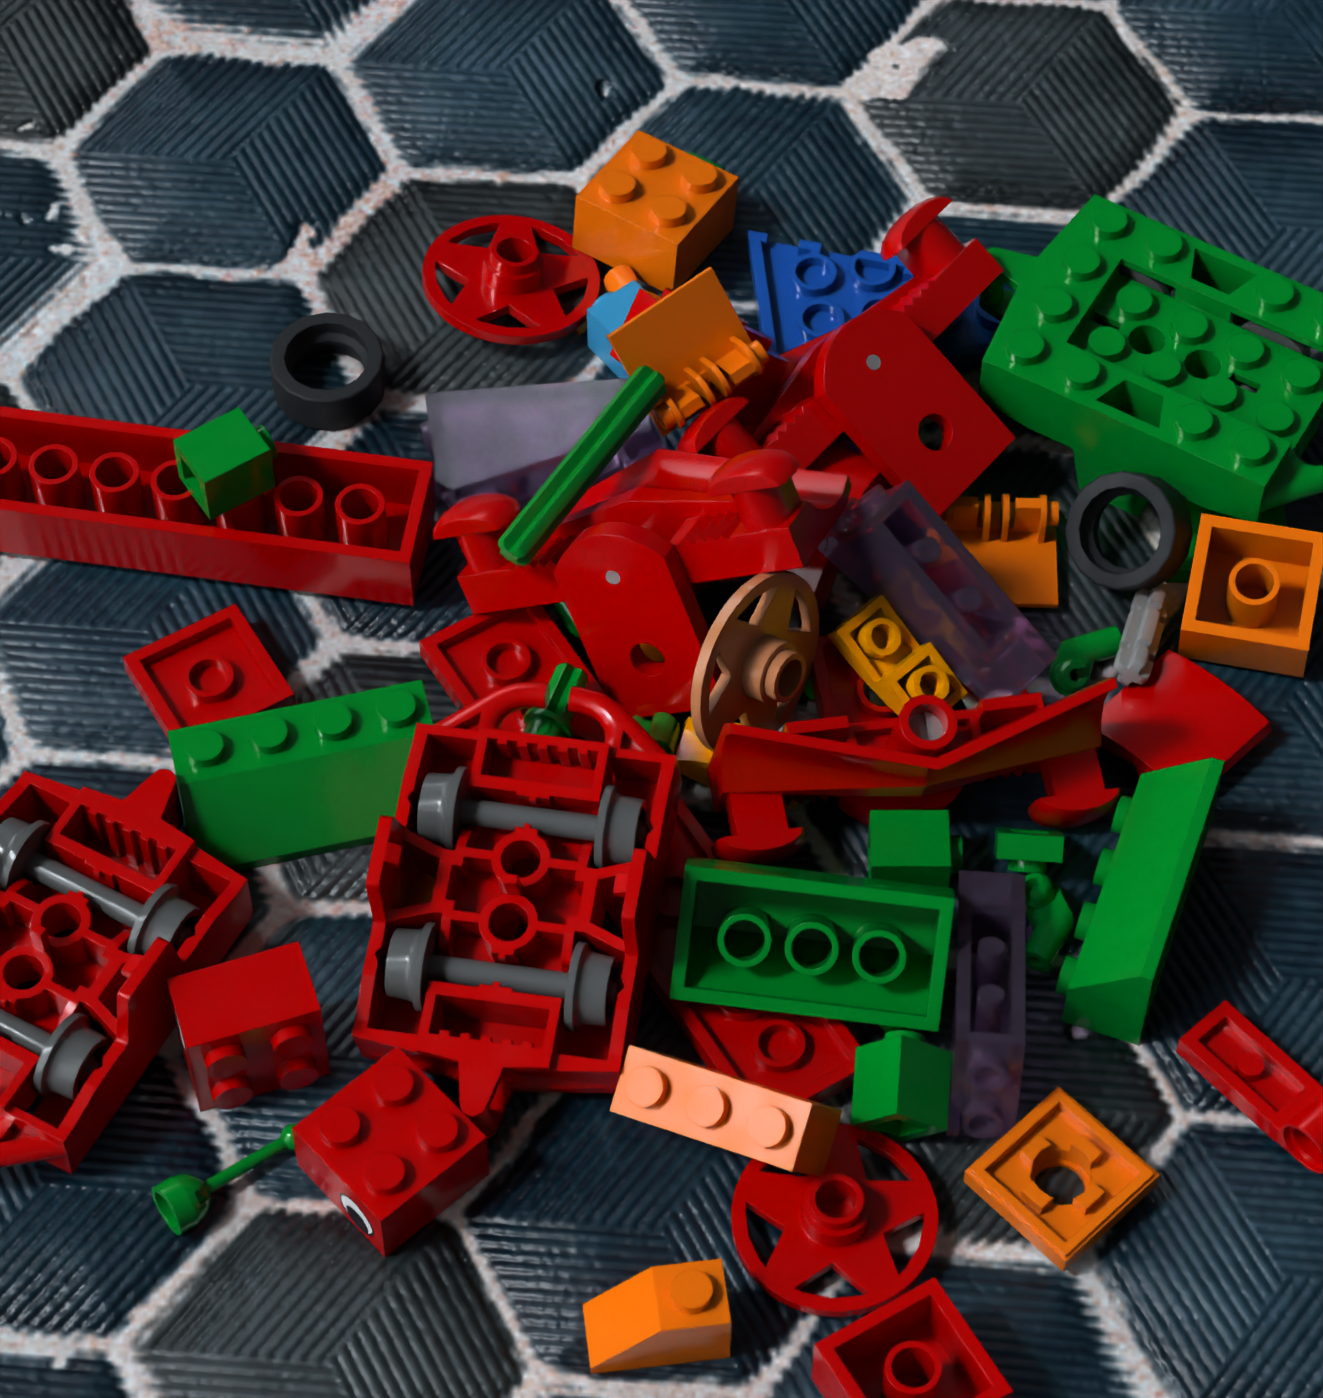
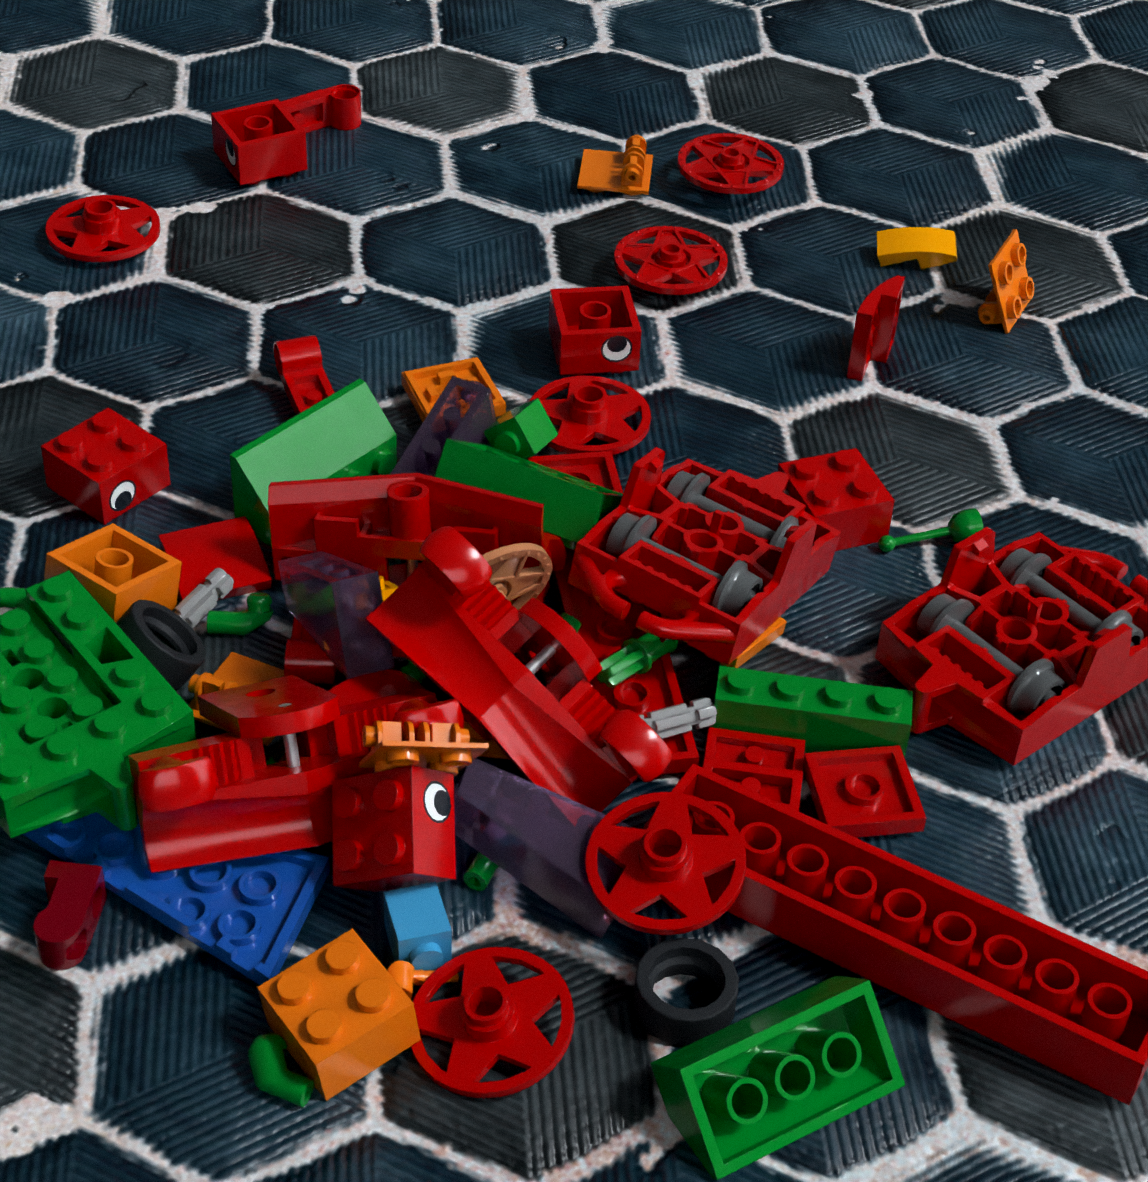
camera: 160 degrees left, 15 degrees down
(208, 322) = (779, 1074): none -> green slope
(226, 462) = (815, 848): green brick -> none
(249, 1027) = (899, 556): red brick -> none
(348, 650) = (758, 762): none -> red slope
(391, 426) = (666, 863): none -> red wheel
(470, 653) = (680, 718): none -> light grey axle
(582, 466) = (548, 707): green axle -> none
(660, 1318) = (708, 399): orange slope -> none
(726, 1111) = (623, 426): brick -> none
(984, 216) = (74, 908): none -> dark red leg

